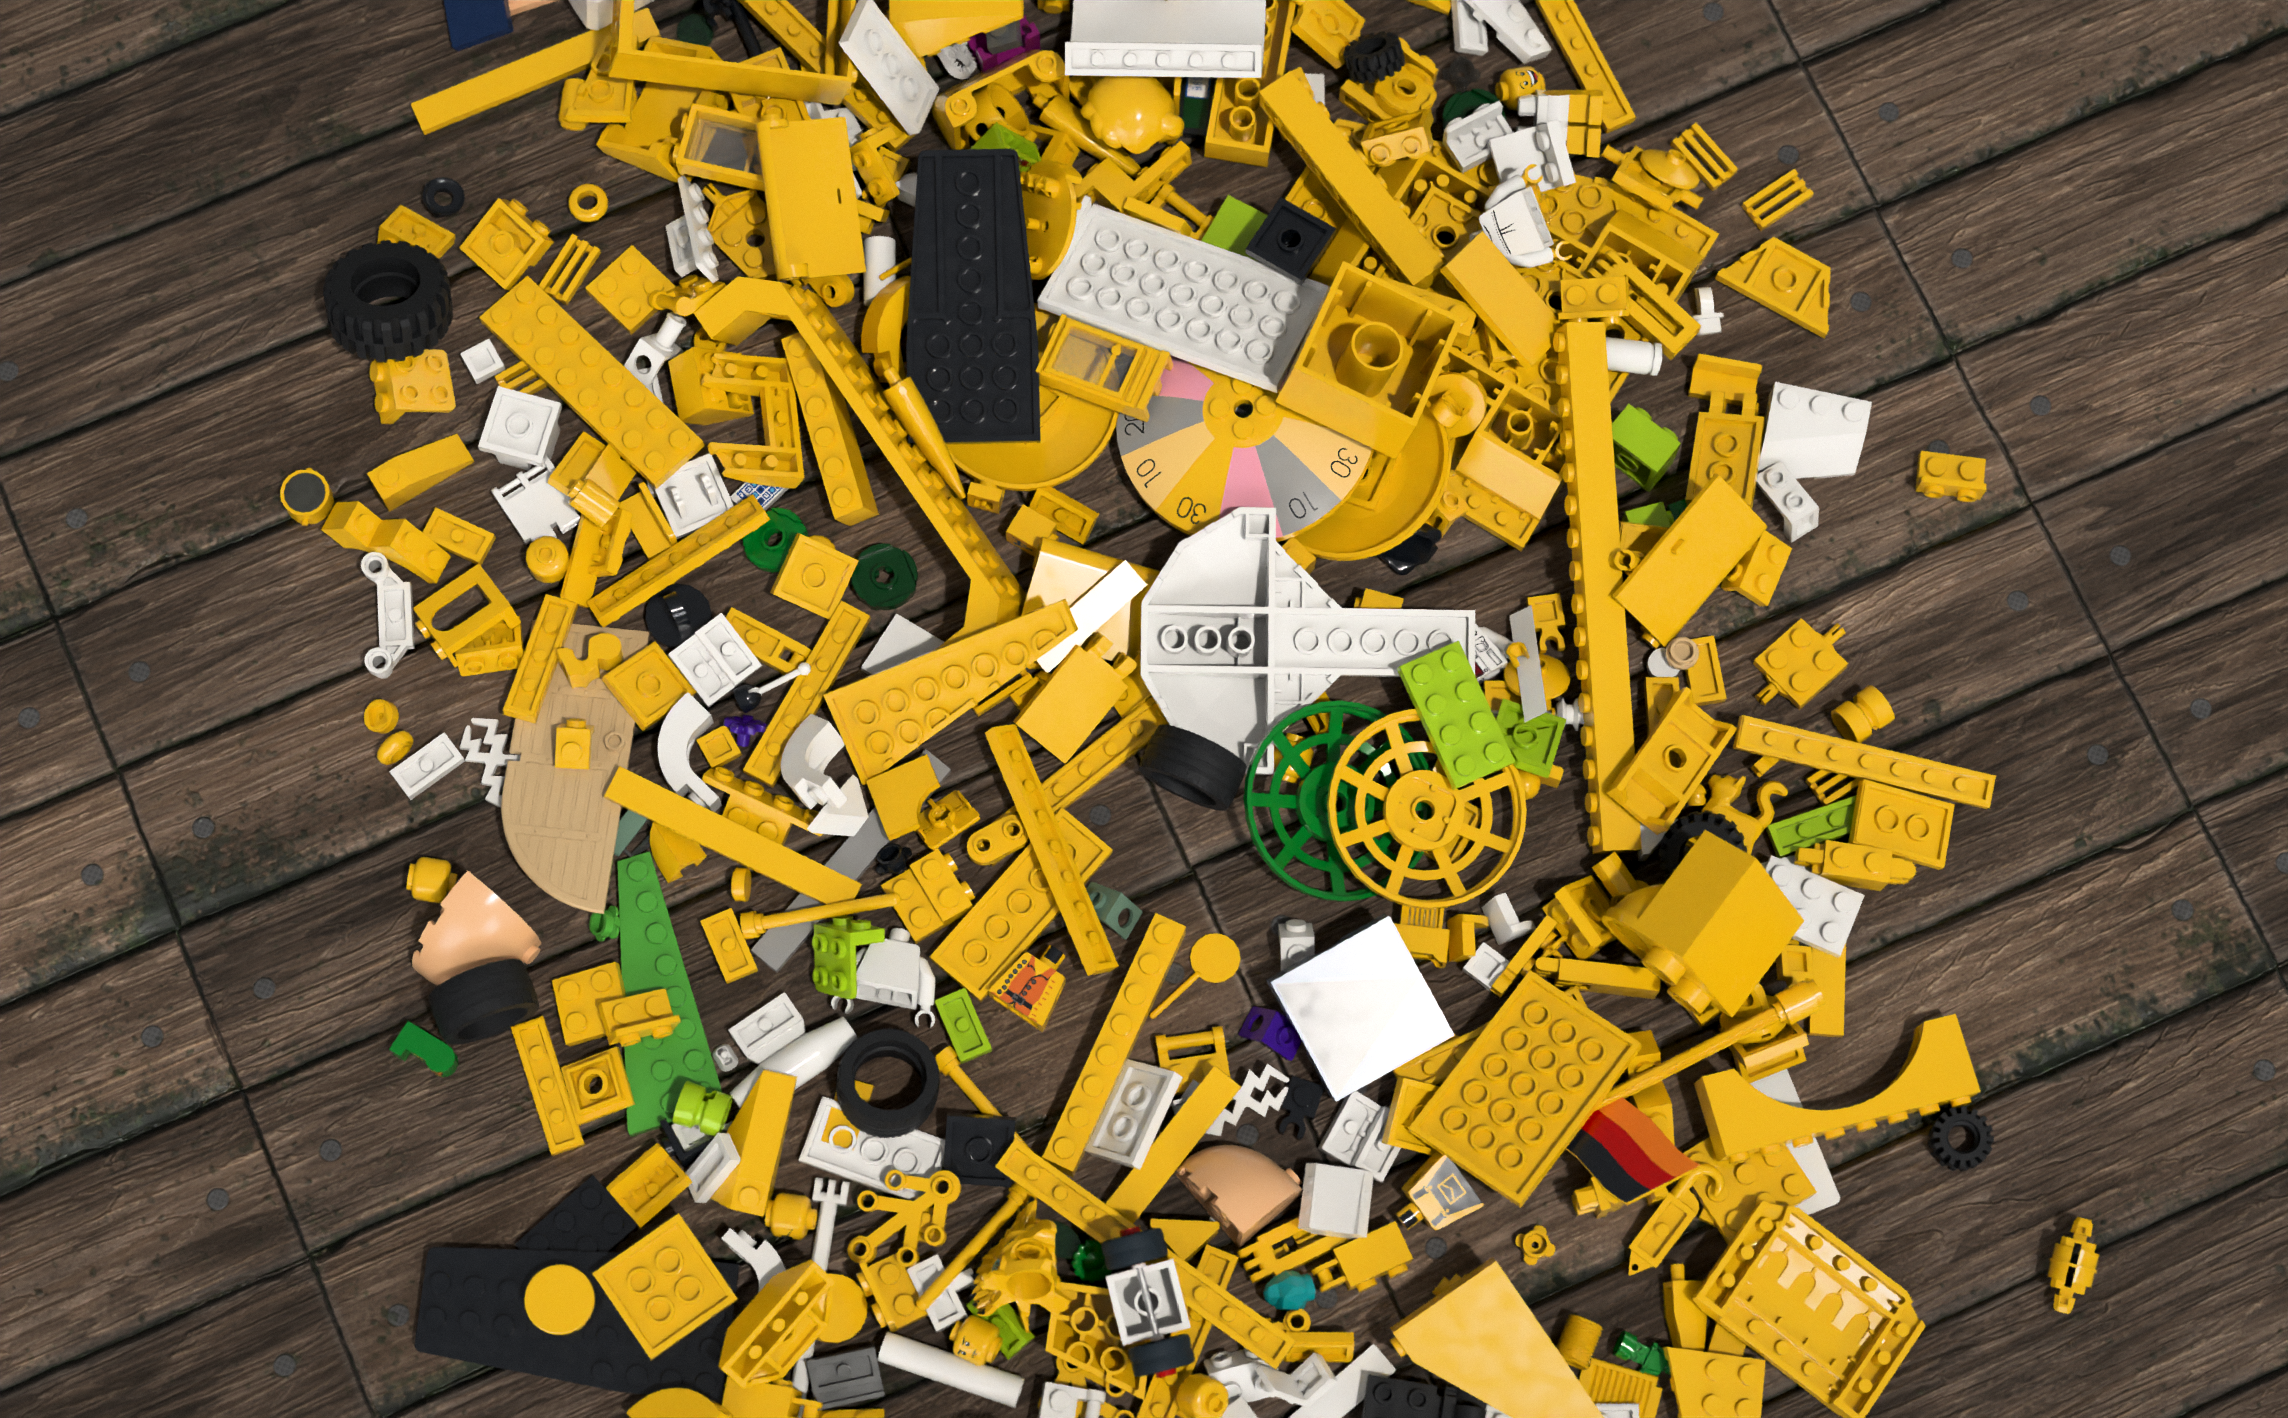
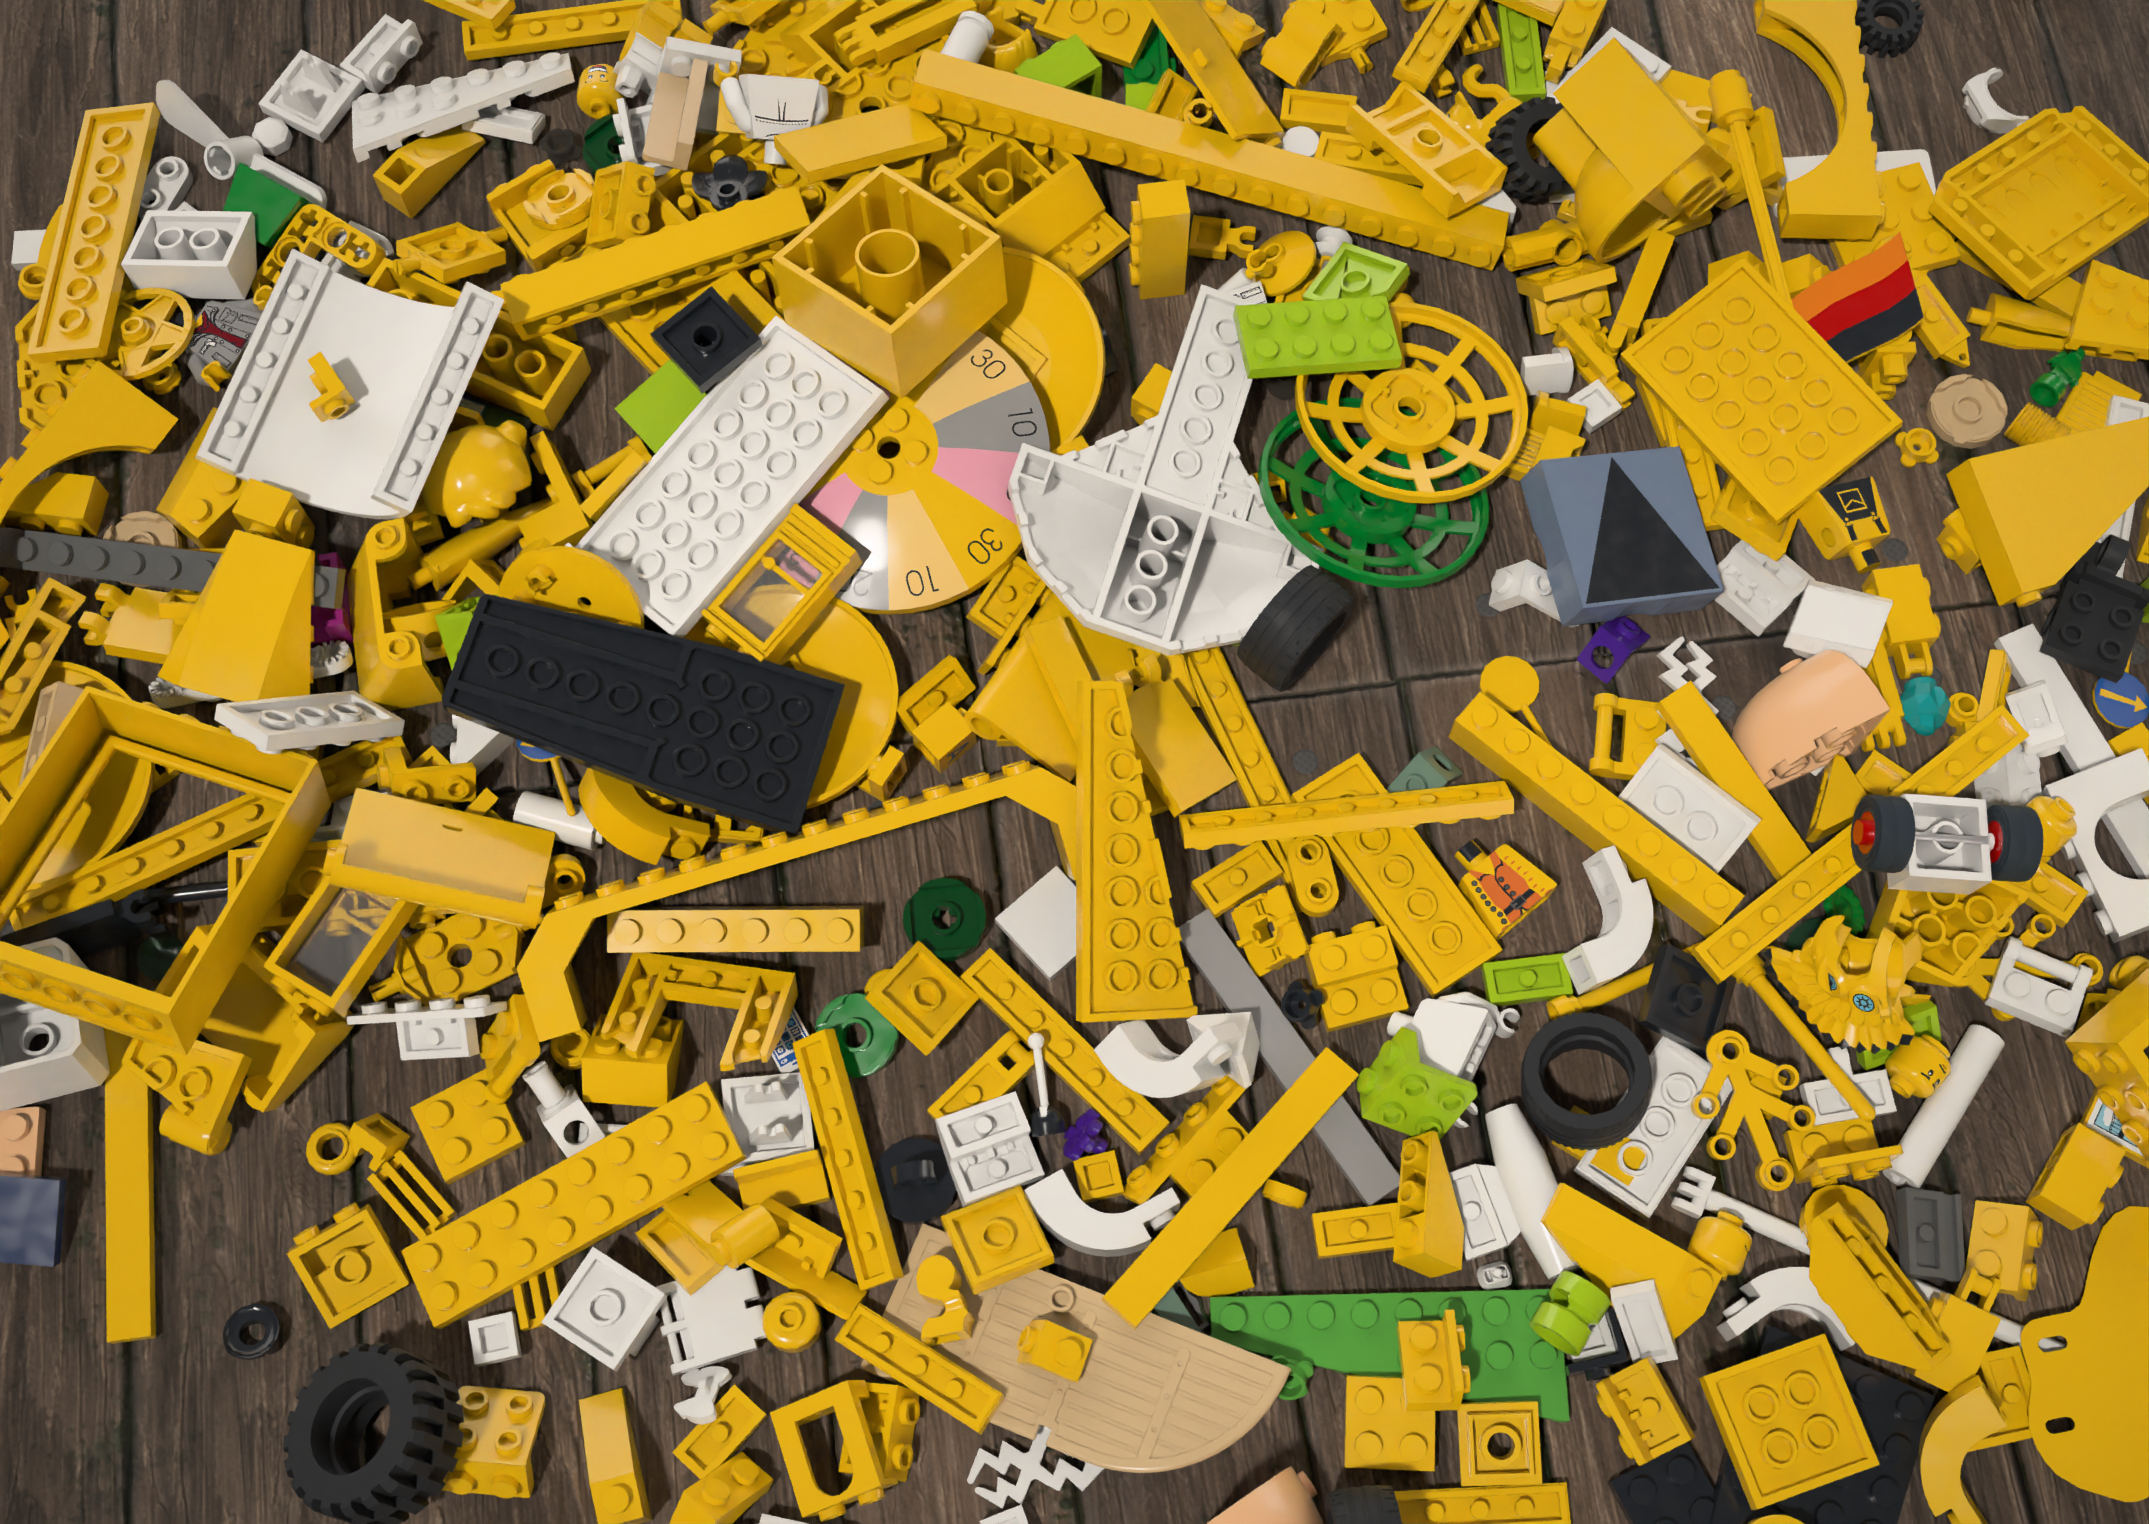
camera: 70 degrees left, 5 degrees down
(416, 230) = (276, 1388): yellow bracket -> none
(491, 517) = (702, 1407): none -> white piece
(602, 230) = (378, 1138): none -> yellow tile
(749, 992) = (1428, 1216): none -> yellow slope
(755, 924) = (1340, 1188): yellow piece -> none
(901, 793) = (1226, 971): yellow tile -> none
(921, 427) = (777, 811): yellow piece -> none
(980, 784) = (1236, 879): none -> yellow plate
(1022, 1090) = (1625, 924): none -> white arch
(1150, 544) = (1005, 606): none -> yellow bracket
(1301, 1103) = (1707, 635): black plate -> none
(1374, 57) = (511, 212): black tyre -> none
(1446, 212) = (729, 182): none -> black plate
(1492, 151) = (675, 117): none -> tan panel
(1503, 565) = (1159, 239): none -> yellow brick
(1529, 670) = (1286, 259): white sticker -> none
(1586, 1282) = (1967, 411): none -> tan tile
(1595, 298) = (889, 60): yellow bracket -> none
(1669, 394) = (1008, 44): none -> yellow piece
(1682, 653) = (1298, 117): tan plate -> none
(1754, 635) = (1300, 45): none -> yellow brick
(1890, 1244) = (1983, 108): none -> white helmet

